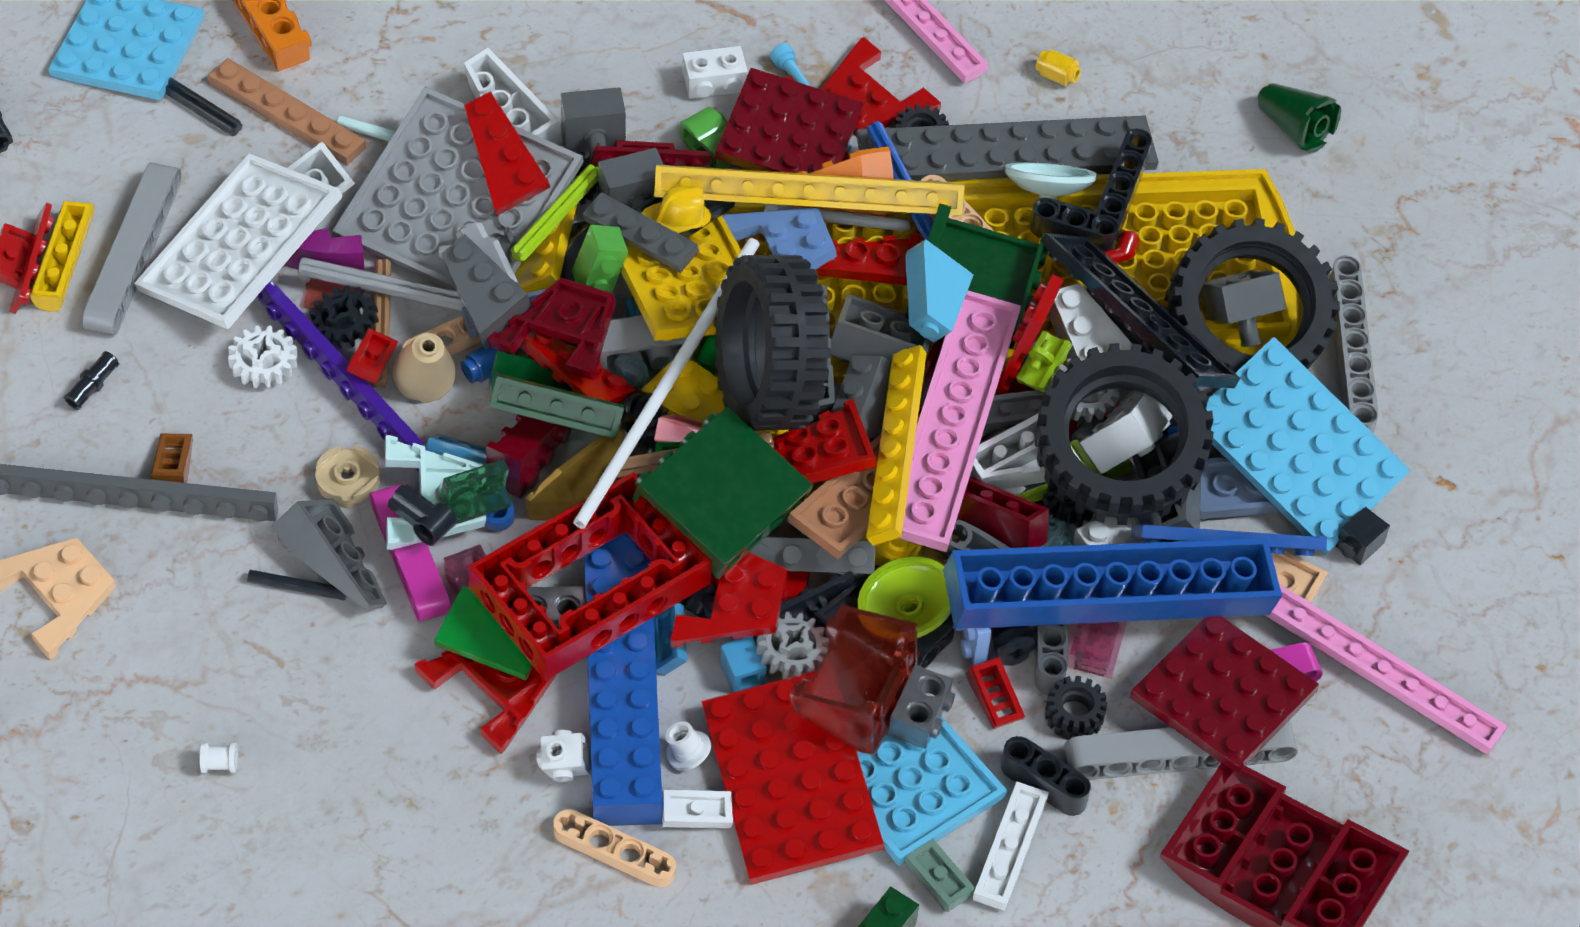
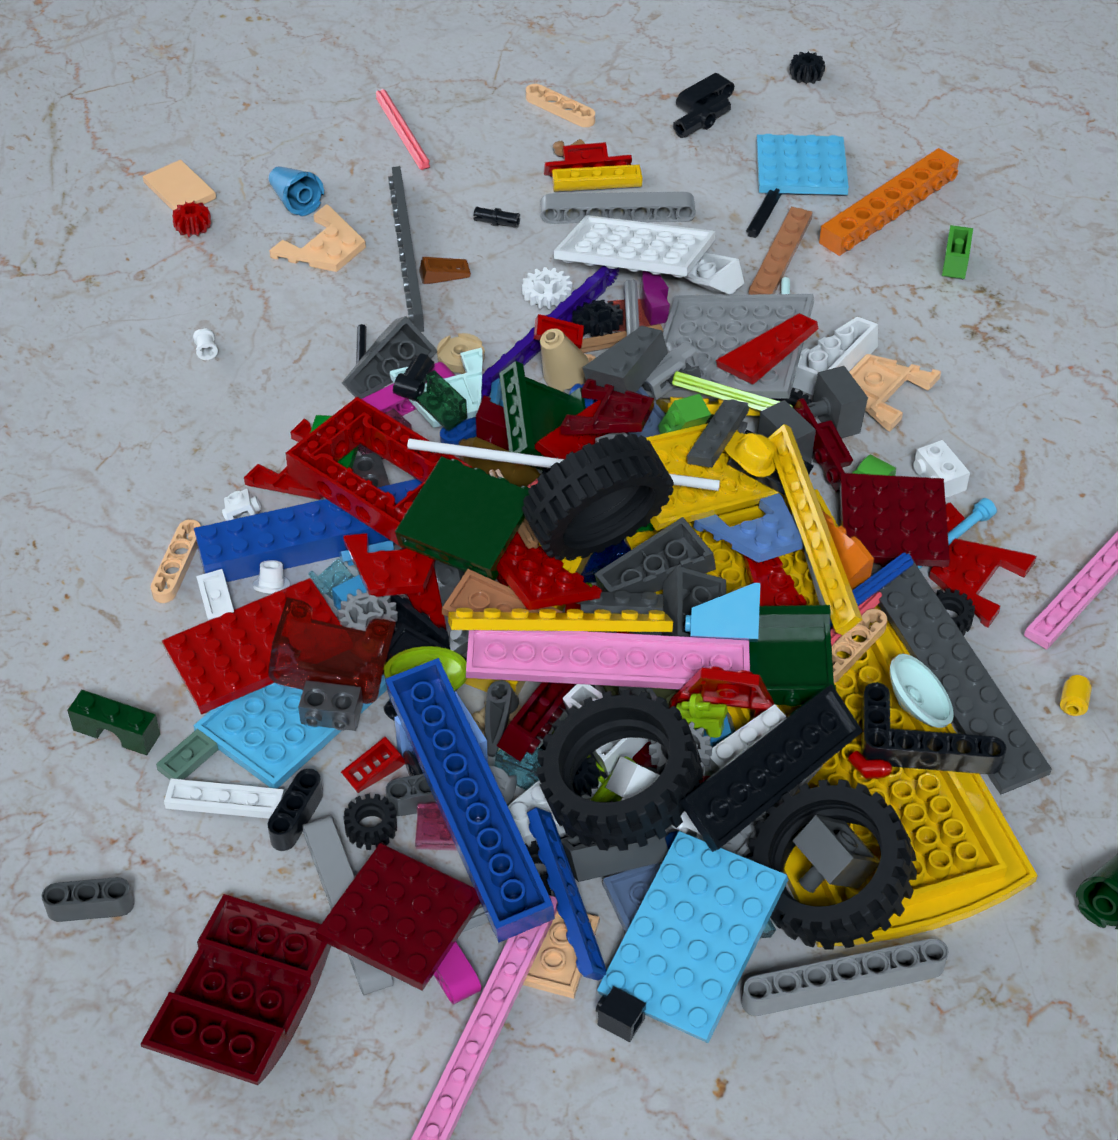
camera: 80 degrees right, 5 degrees down
(549, 76) = (881, 379): none -> light nougat wing
(704, 679) = (331, 577): none -> clear light blue bracket

